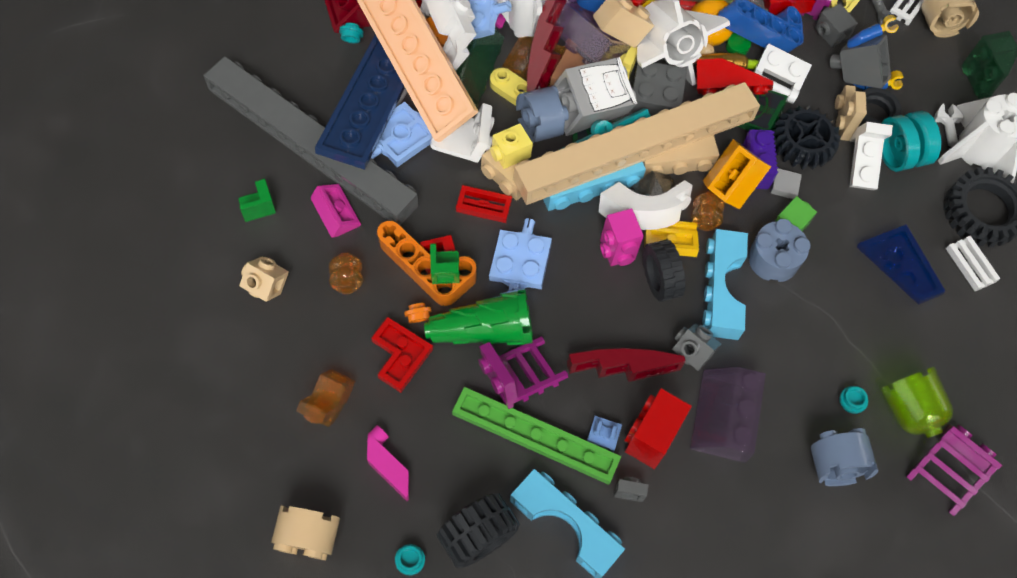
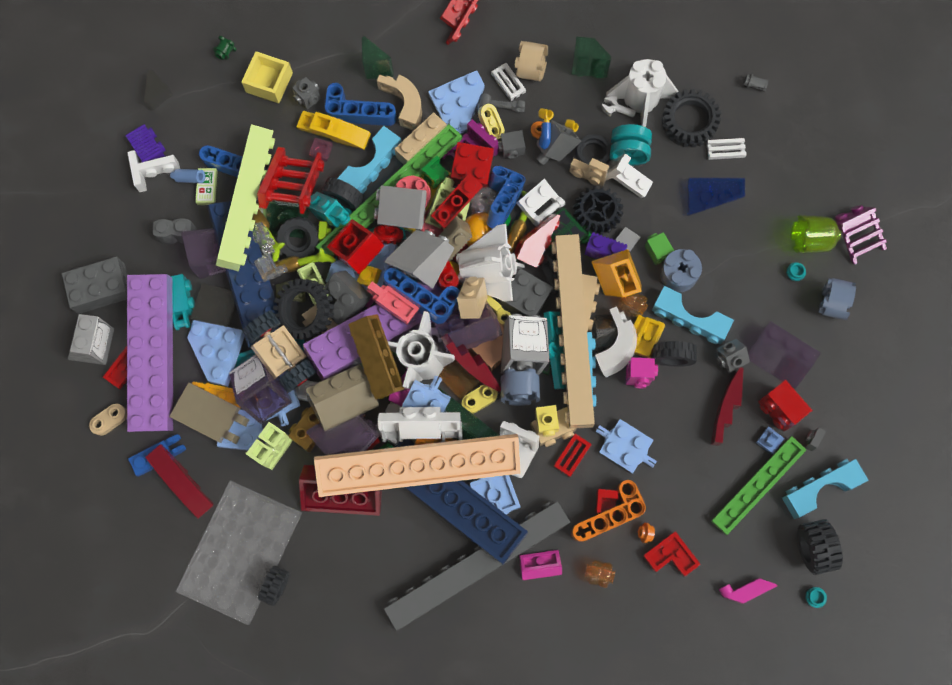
camera: 60 degrees left, 10 degrees up
(257, 204) = (516, 622): green panel -> none
(263, 278) = (586, 634): tan brick -> none
(305, 531) = (784, 660): tan brick -> none
(327, 398) = (693, 617): clear orange brick -> none
(351, 33) = (389, 502): teal plate -> none
(444, 266) = (626, 502): green panel -> none
(489, 320) = (671, 488): green cone -> none
(505, 380) = (722, 490): magenta plate -> none

